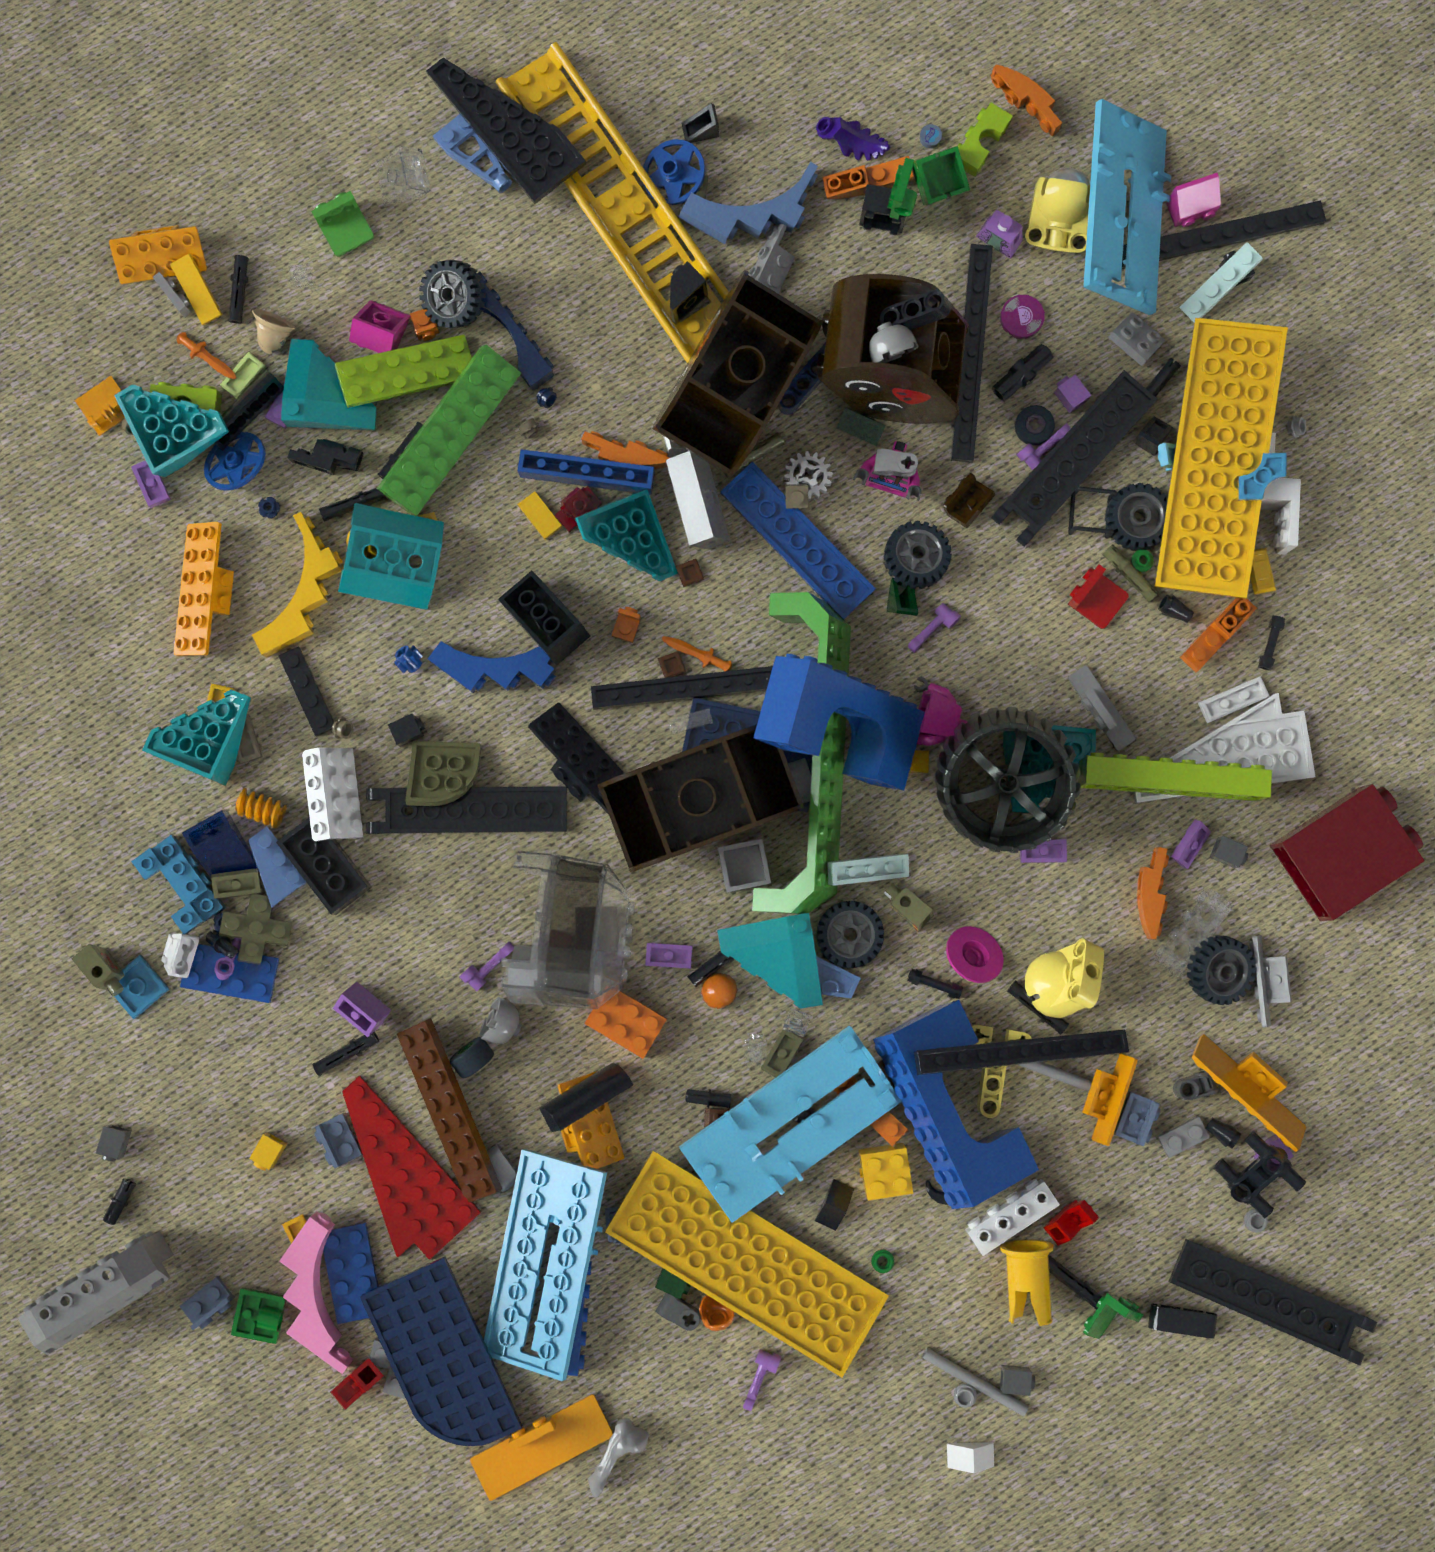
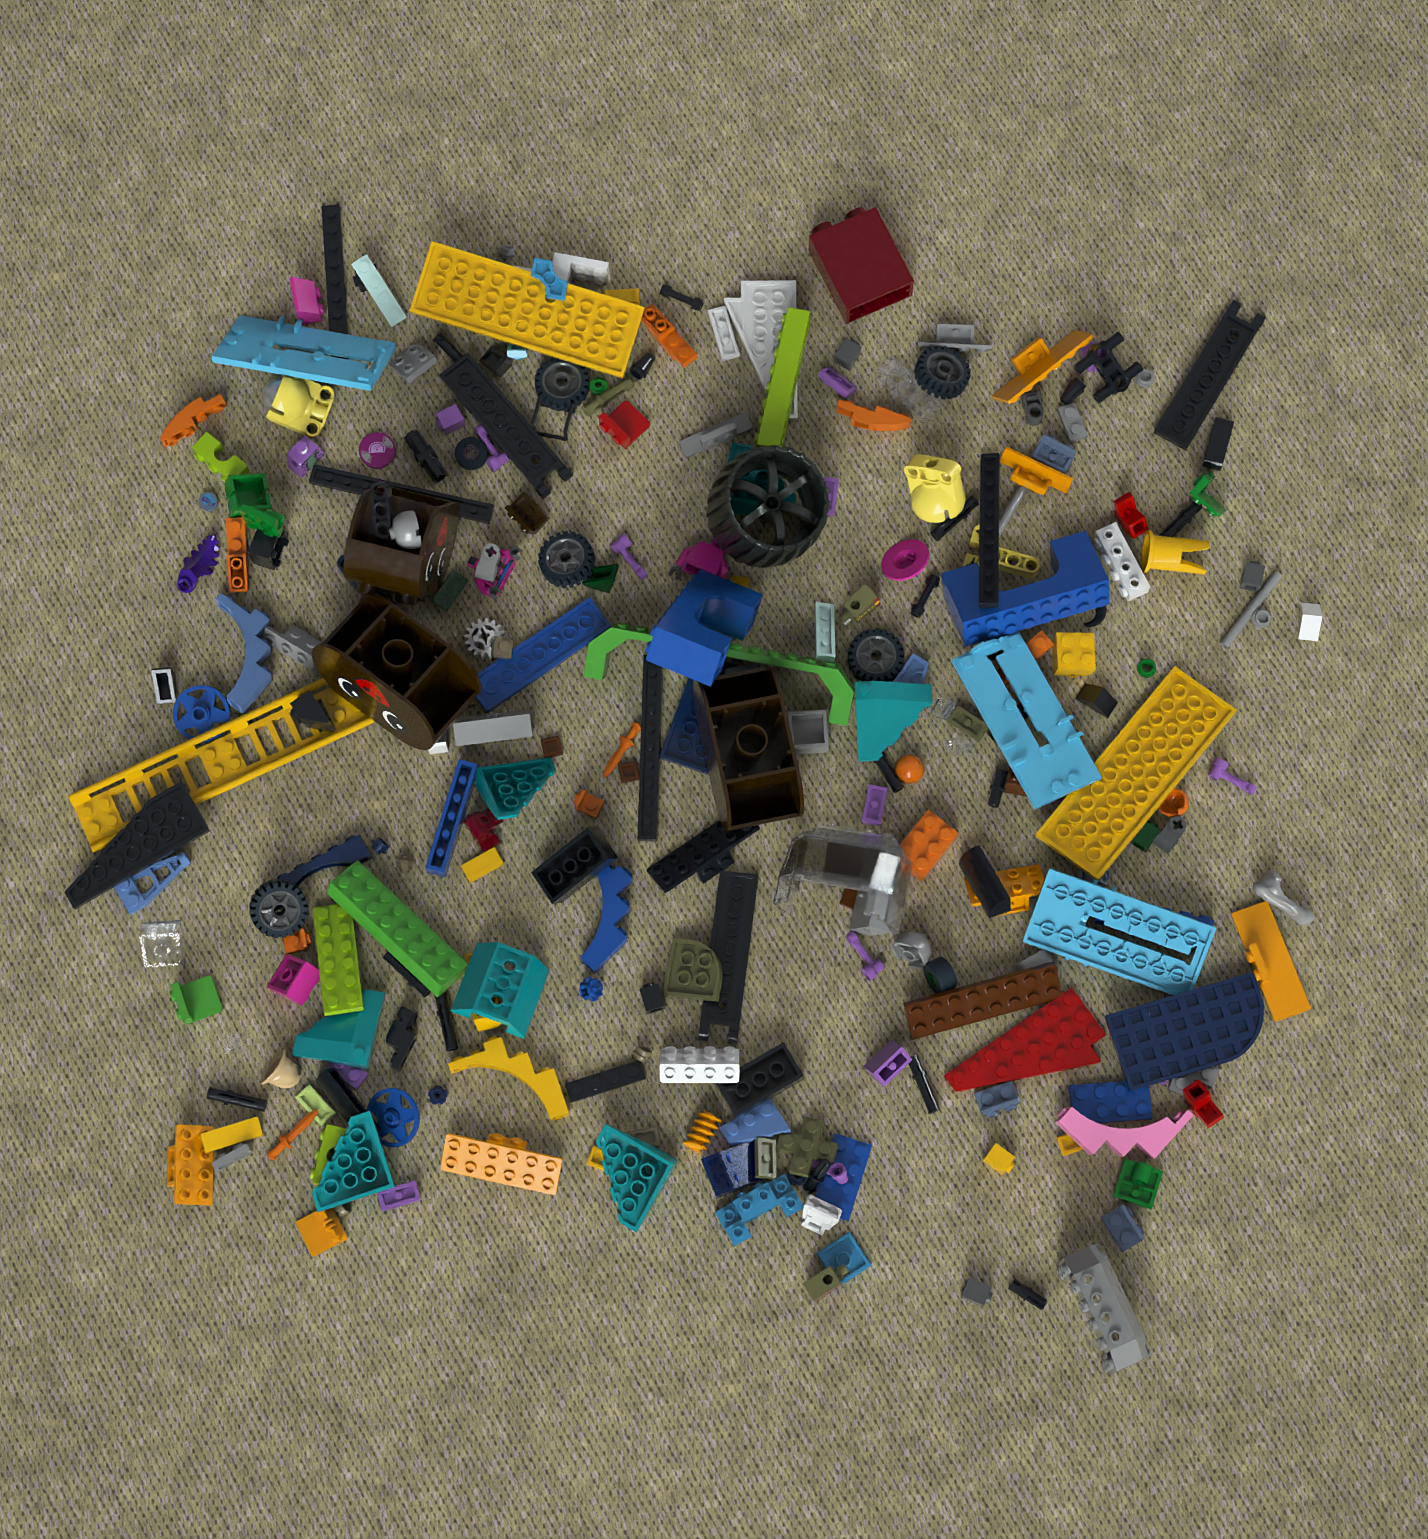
camera: 80 degrees left, 10 degrees down
(634, 453) = (442, 777): orange slope -> none
(690, 721) = (680, 759): clear piece -> none

